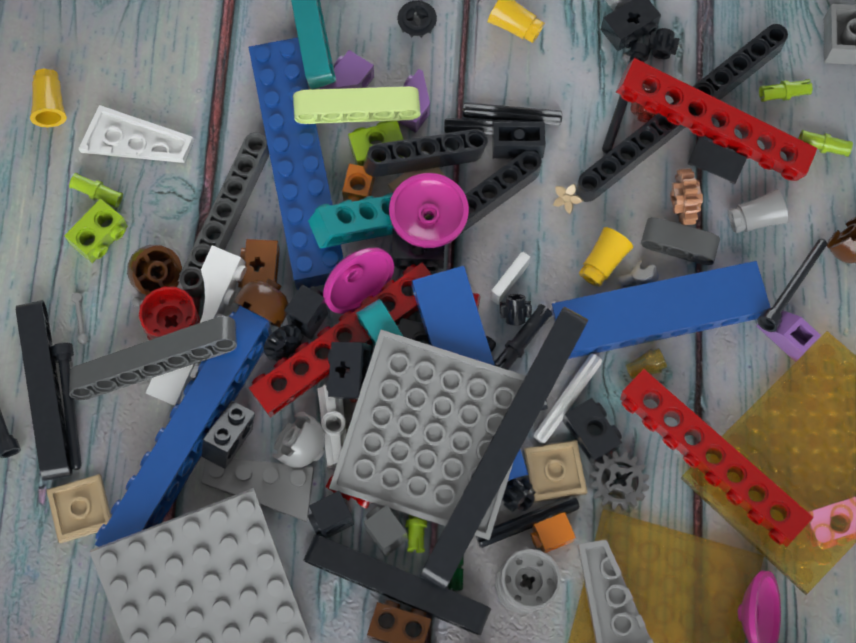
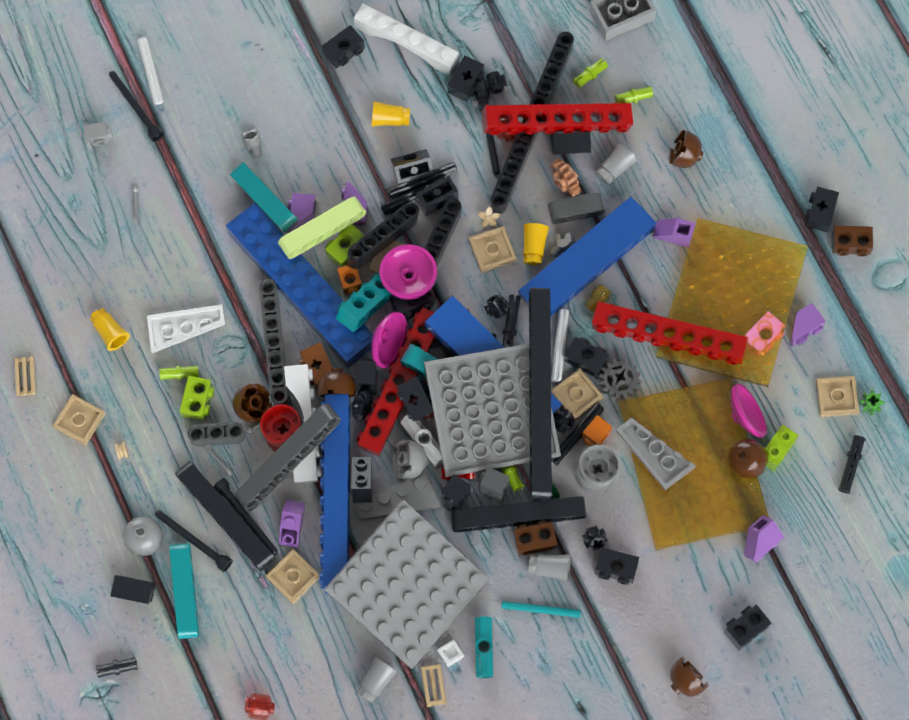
camera: 25 degrees left, 0 degrees up
(85, 276) = (208, 429): none -> dark grey beam
(116, 441) = (291, 523): none -> medium lavender slope
(423, 11) = (322, 140): black gear -> none
(508, 90) = (412, 166): none -> black brick
(510, 277) = (481, 289): white tile -> none
(551, 238) = (492, 249): none -> tan tile
(771, 317) = (659, 228): black piece -> none

